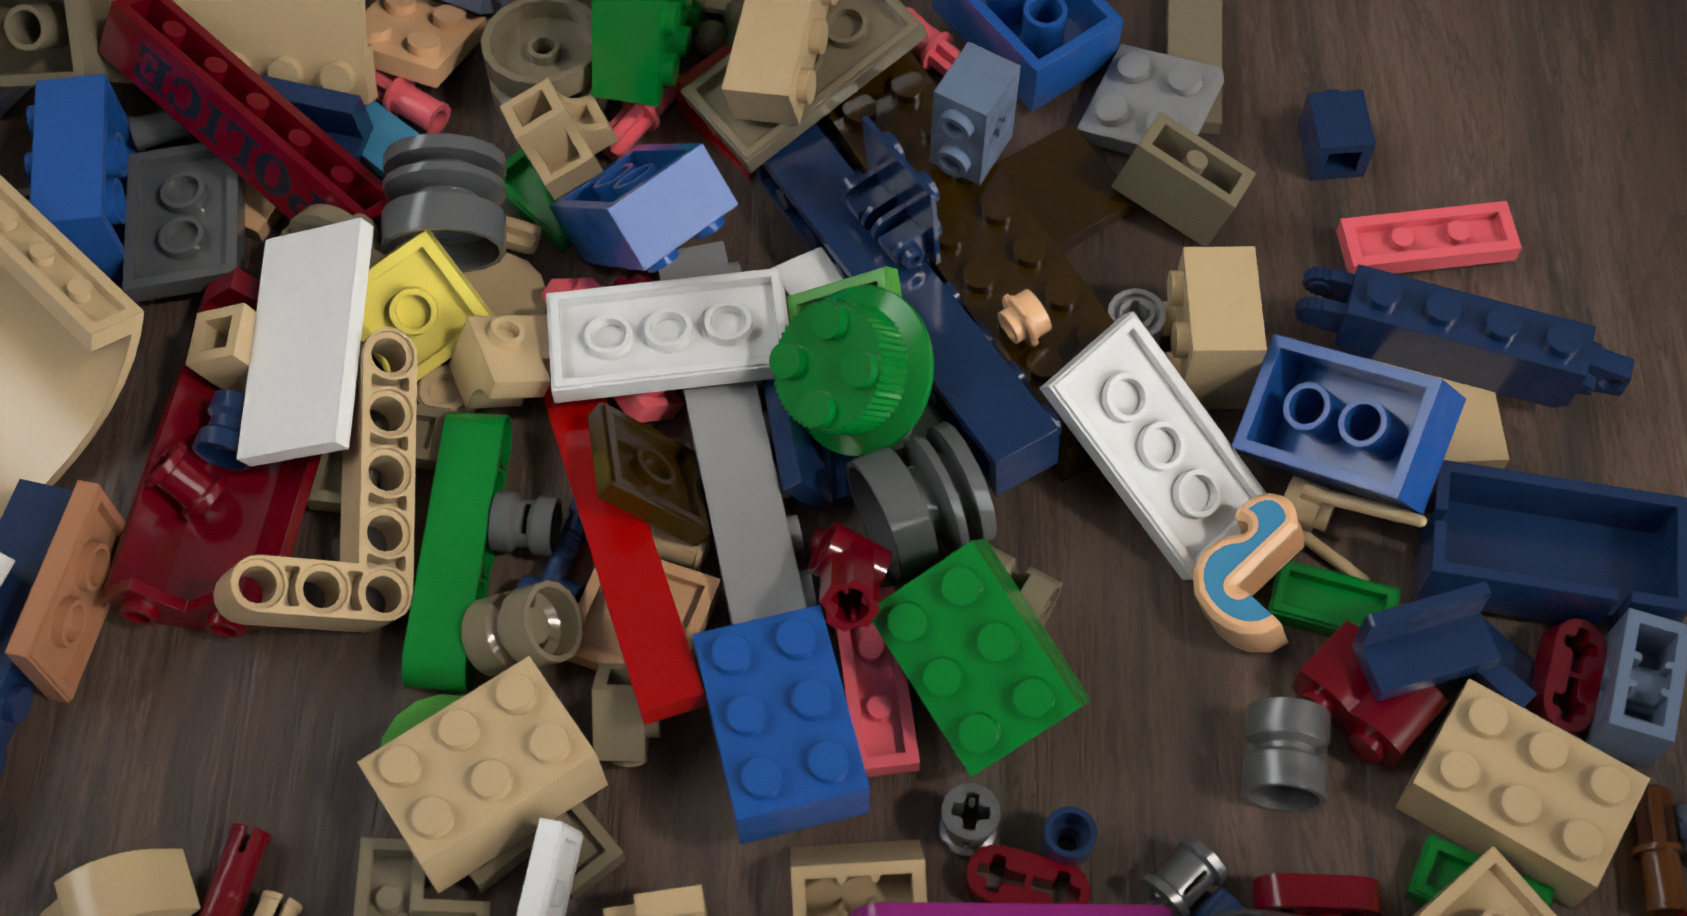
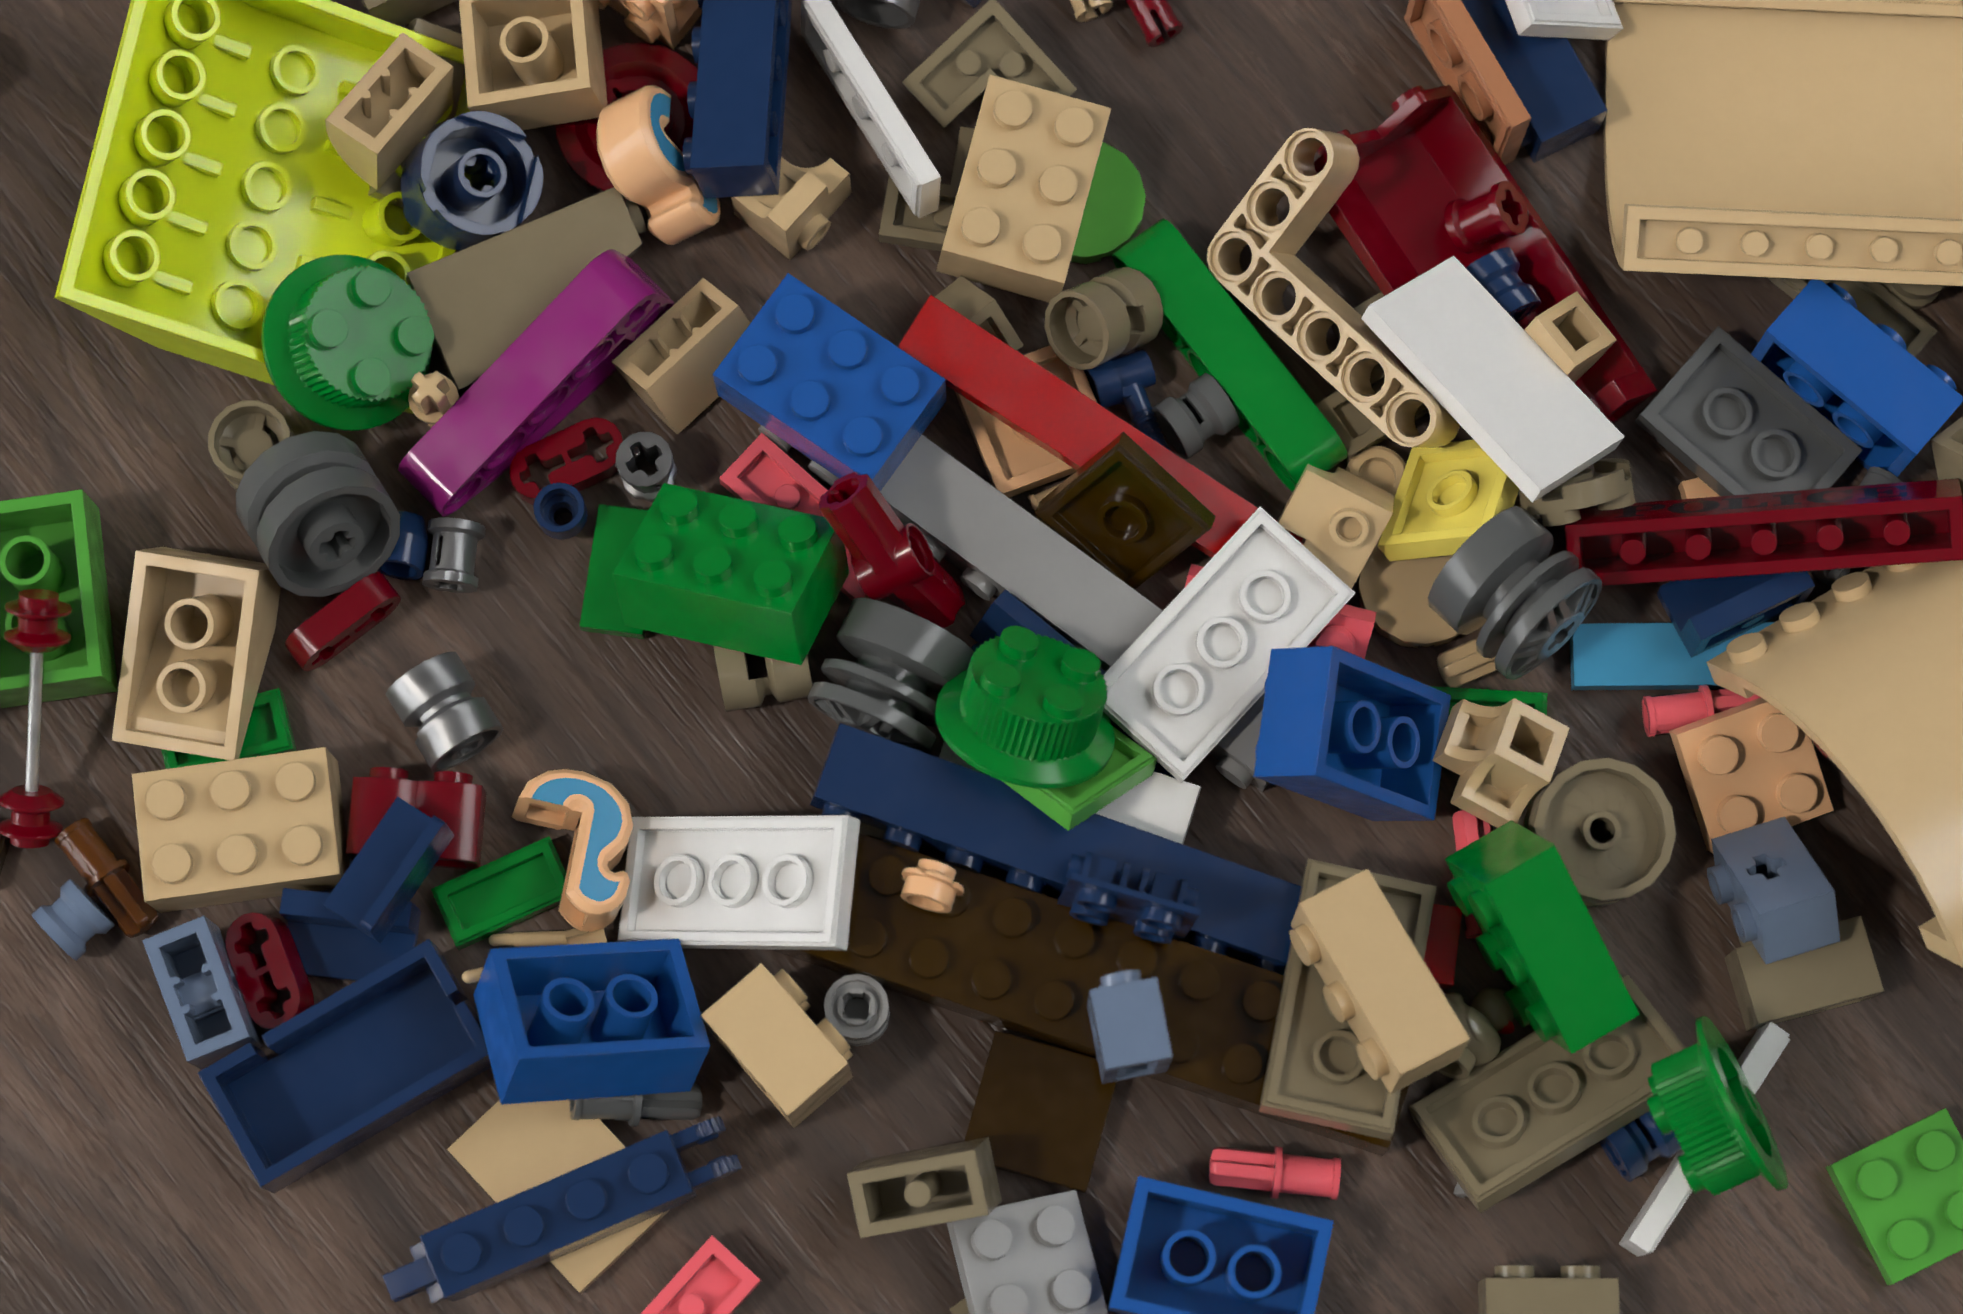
camera: 140 degrees right, 15 degrees up
(1053, 767) = (601, 606): none -> green tile

